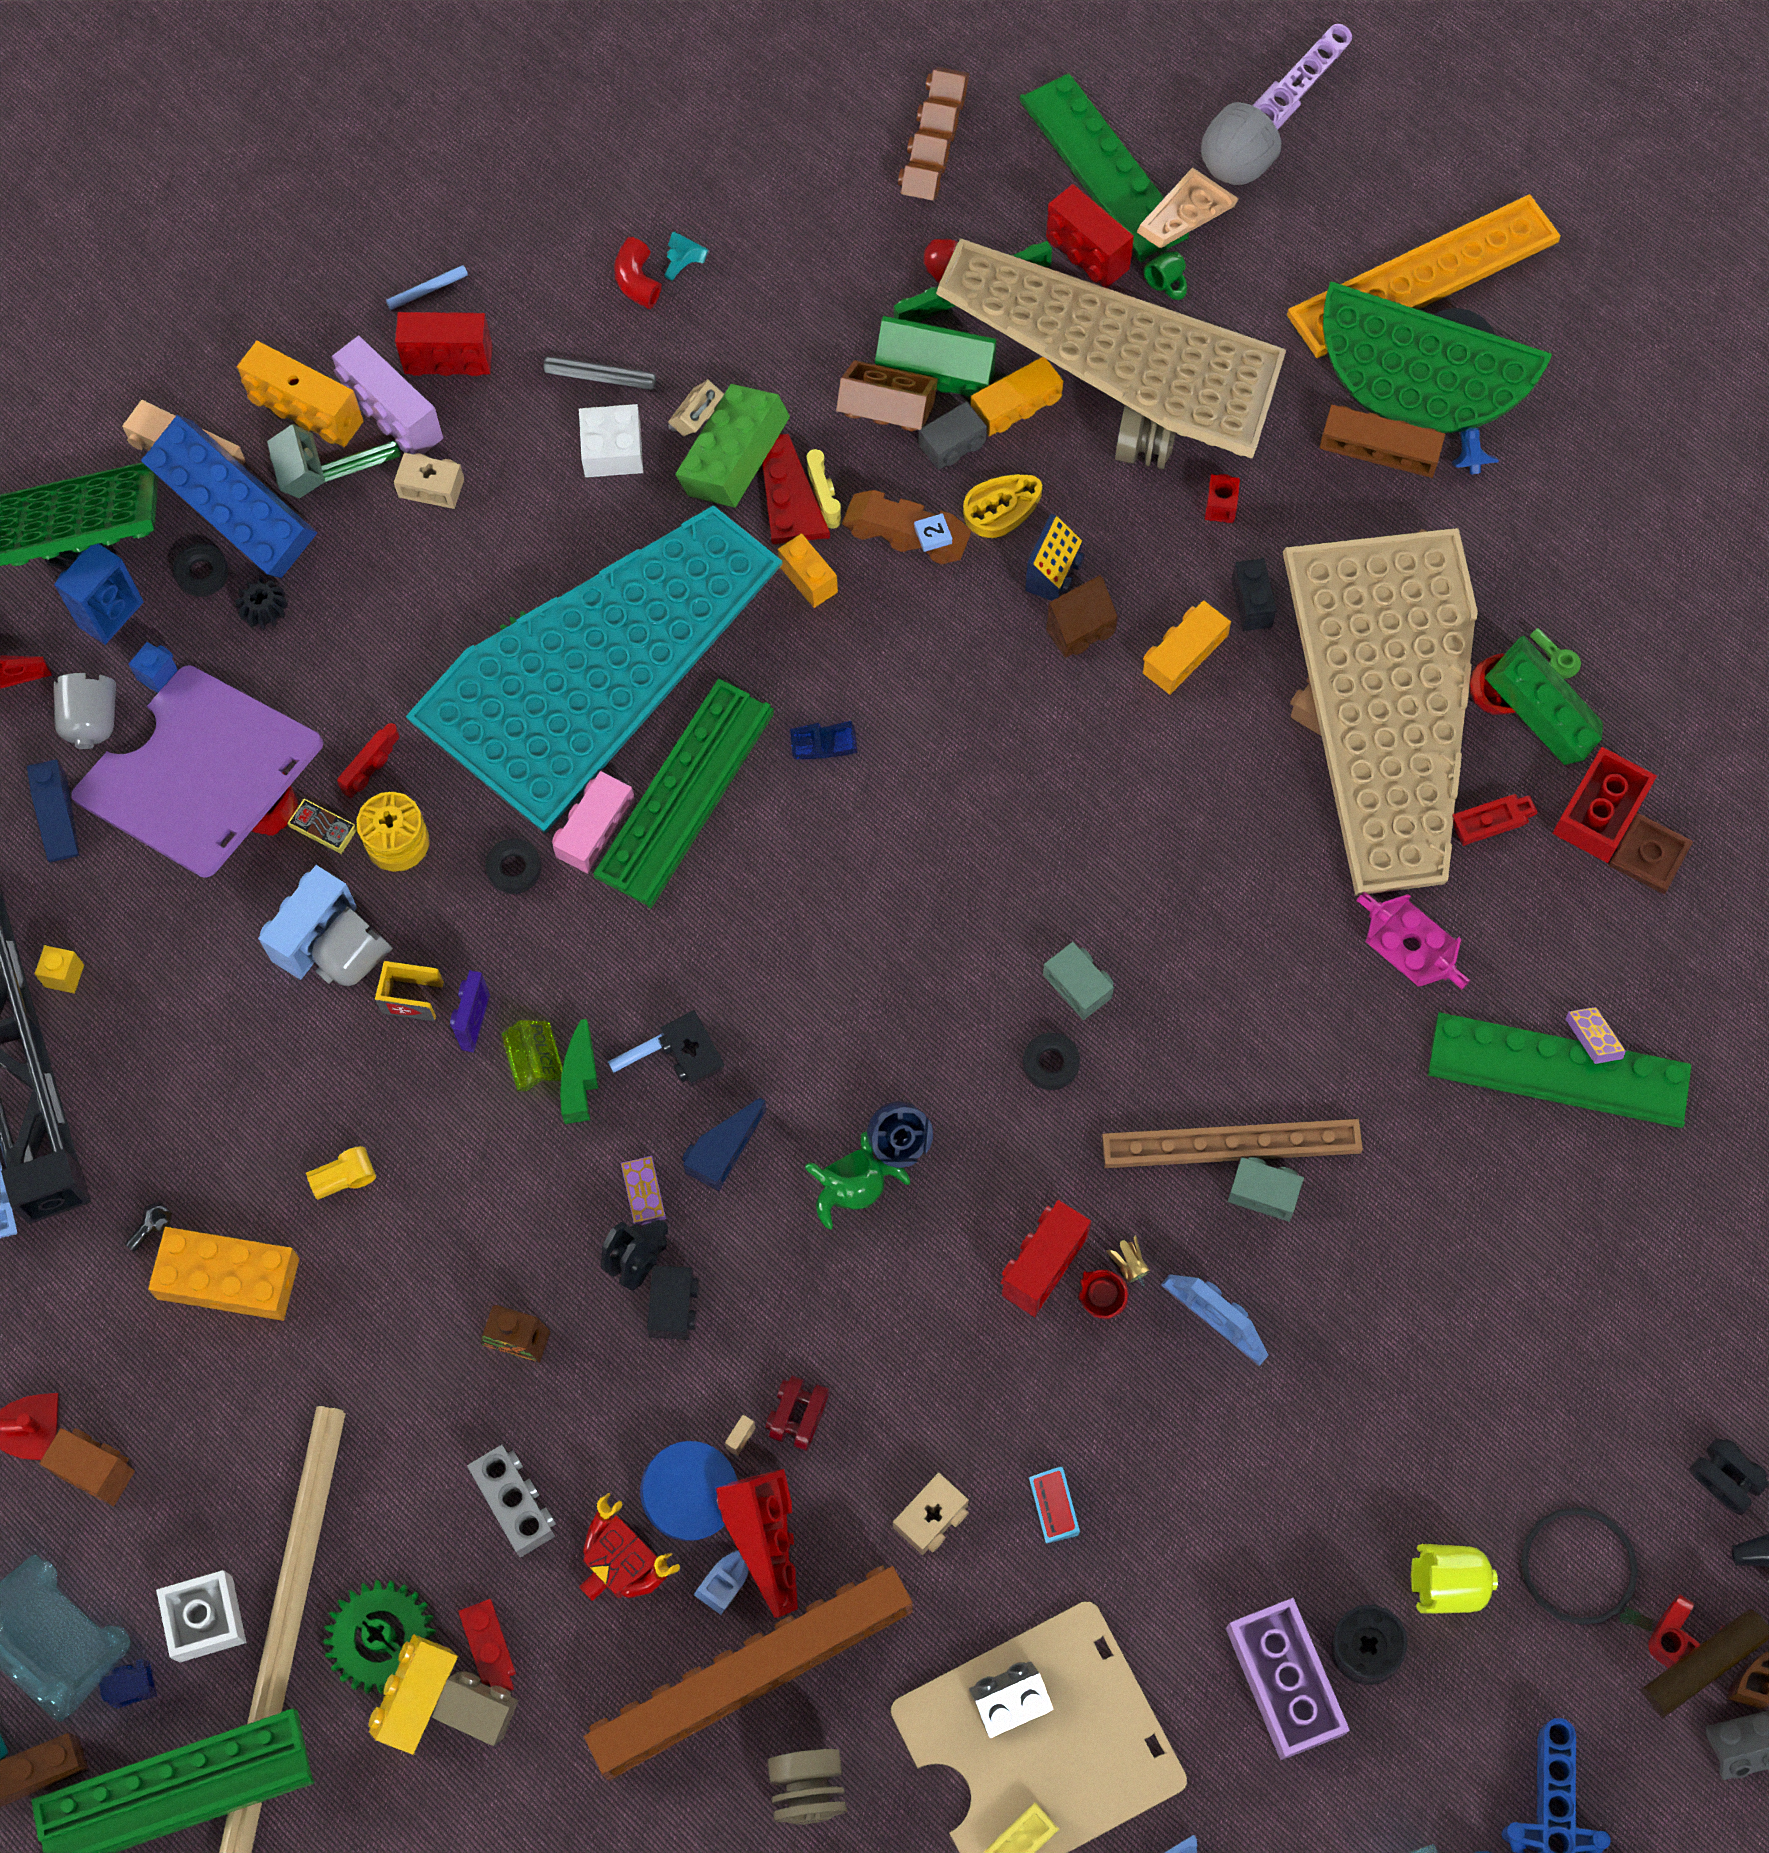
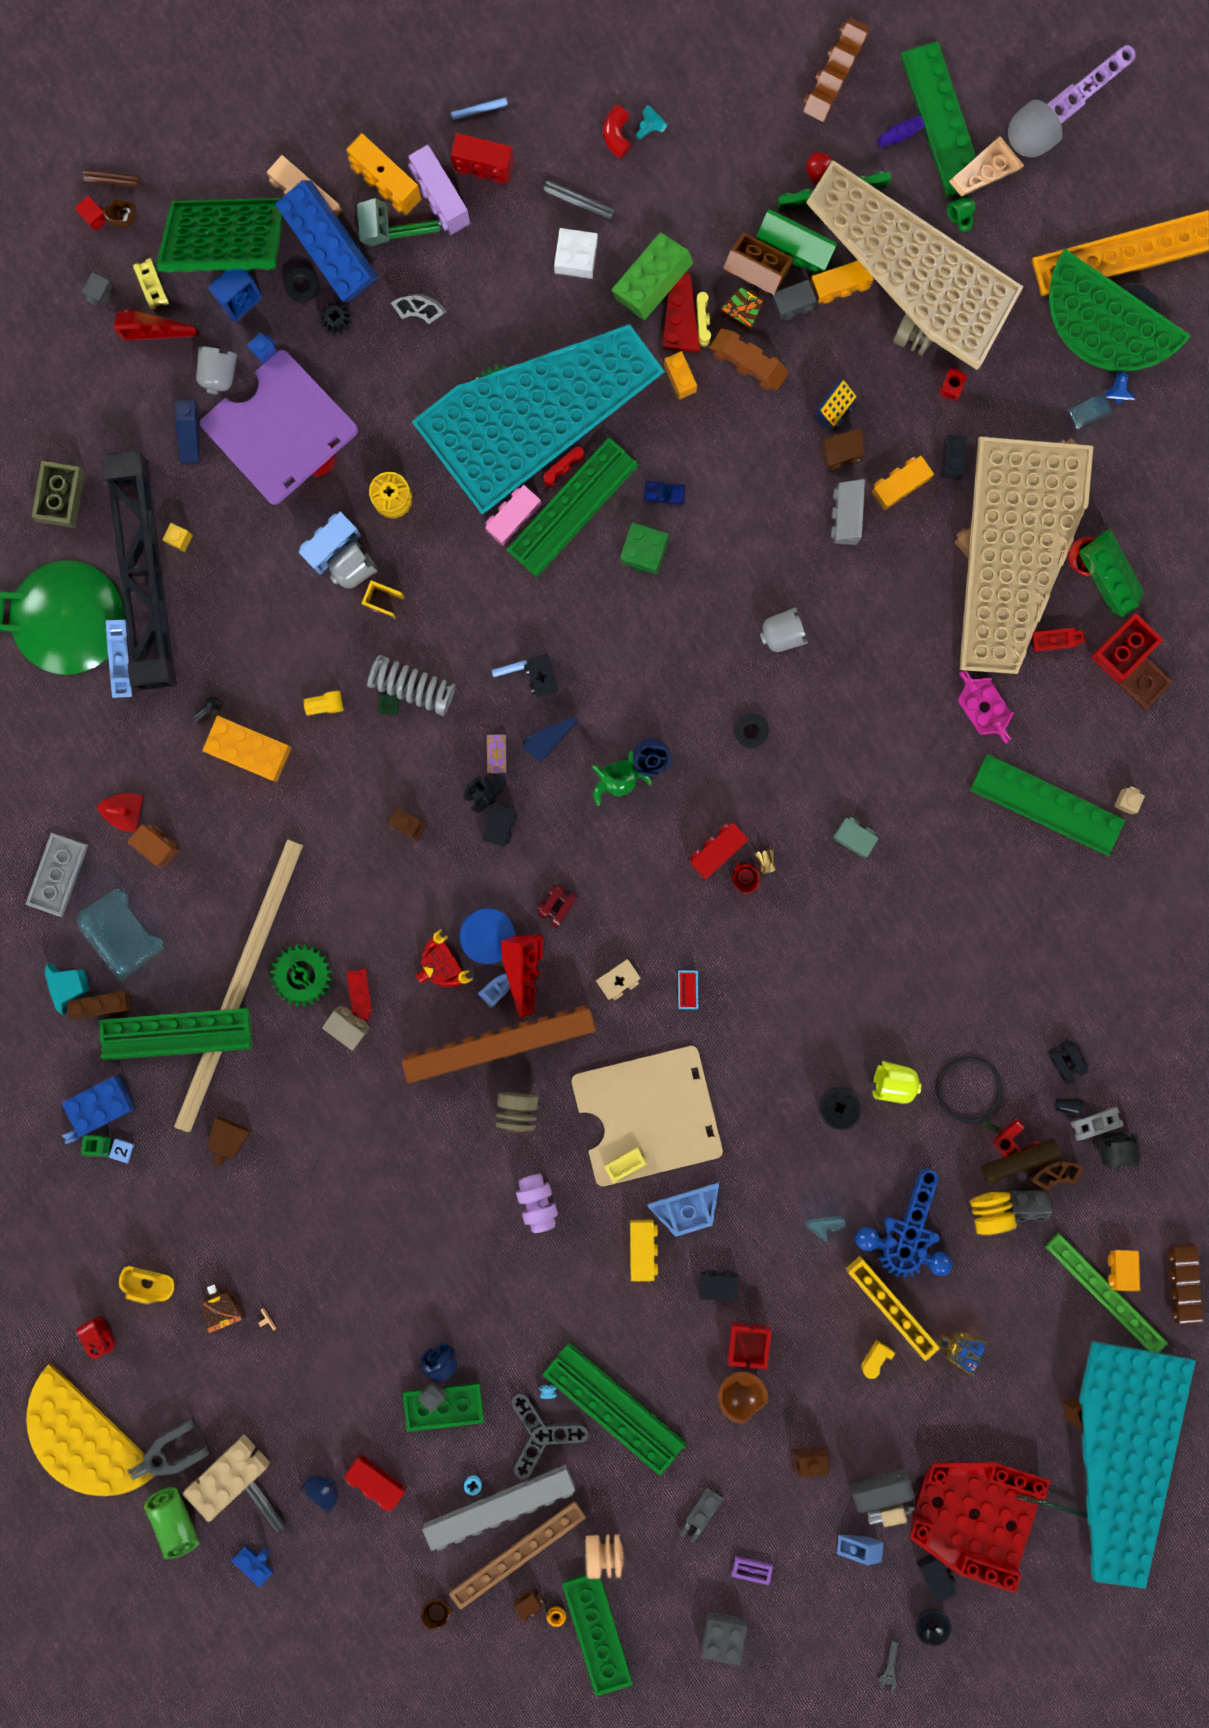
camera: 10 degrees right, 20 degrees up
(128, 1685) = (159, 970): clear blue brick -> none
(201, 1616) = (204, 943): white brick -> none
(322, 826) = (349, 478): tile -> none
(369, 759) = (387, 440): red hinge -> none
(387, 558) = (419, 306): none -> light grey brick
(412, 1694) = (313, 1013): yellow brick -> none
(429, 480) = (460, 262): tan brick -> none
(449, 1152) = (388, 704): none -> dark green tile
(471, 1011) = (413, 629): dark purple plate -> none
(496, 1491) = (378, 911): light grey brick -> none
(506, 849) = (465, 521): black tyre -> none
(532, 1053) = (448, 655): clear neon green panel -> none
(534, 1127) = (377, 677): none -> light grey piece
(578, 1076) = (472, 675): green slope -> none
(657, 734) = (563, 466): none -> red plate
(695, 408) = (634, 245): tan piece -> none
(740, 1435) = (522, 910): tan tile -> none
(812, 824) = (644, 548): none -> green brick
(880, 461) = (743, 307): none -> torso
(933, 532) = (763, 372): light blue tile -> none
(1008, 518) = (807, 345): yellow piece -> none
(1010, 1698) = (637, 1089): bracket -> none
(1046, 191) = (901, 131): none -> dark purple hinge
(1062, 896) = (783, 631): none -> light grey cylinder
(1078, 980) = (780, 685): sand green brick -> none
(1089, 236) = (917, 175): red brick -> none
(1116, 704) = (848, 512): none -> light grey slope
(1224, 1317) = (813, 910): medium blue wing -> none
(1231, 1143) = (843, 805): medium nougat plate -> none
(1287, 1679) = (790, 1115): lavender brick -> none
(1382, 440) = (1065, 367): dark orange brick -> none
(1438, 491) = (1090, 410): none -> clear light blue slope
(1563, 661) = (1132, 546): bright green plate -> none
(1595, 1035) = (1074, 790): medium lavender tile -> none
(1687, 1031) = (1129, 800): none -> tan brick
(1689, 1768) = (992, 1208): none -> yellow wheel

